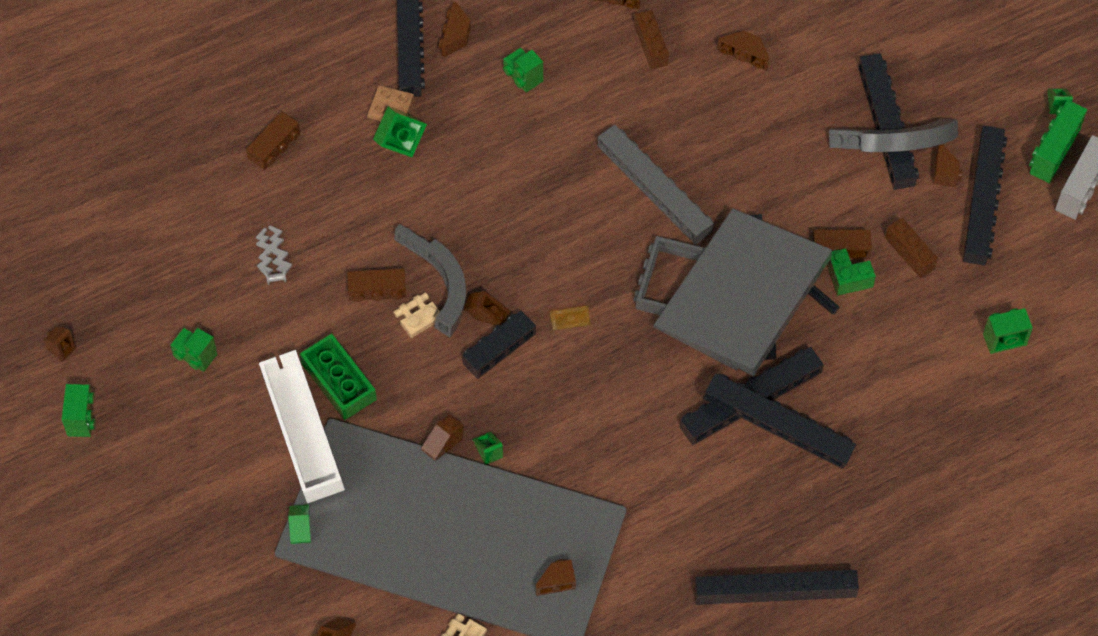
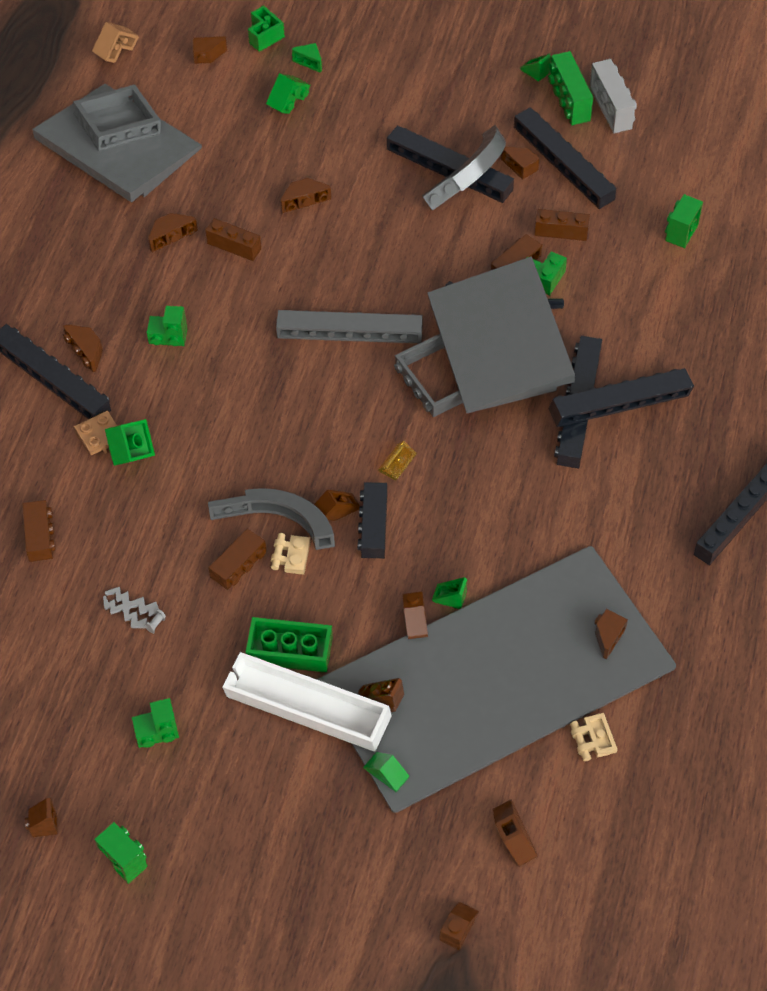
camera: 45 degrees left, 5 degrees down
(352, 469) = (386, 692): none -> reddish brown slope

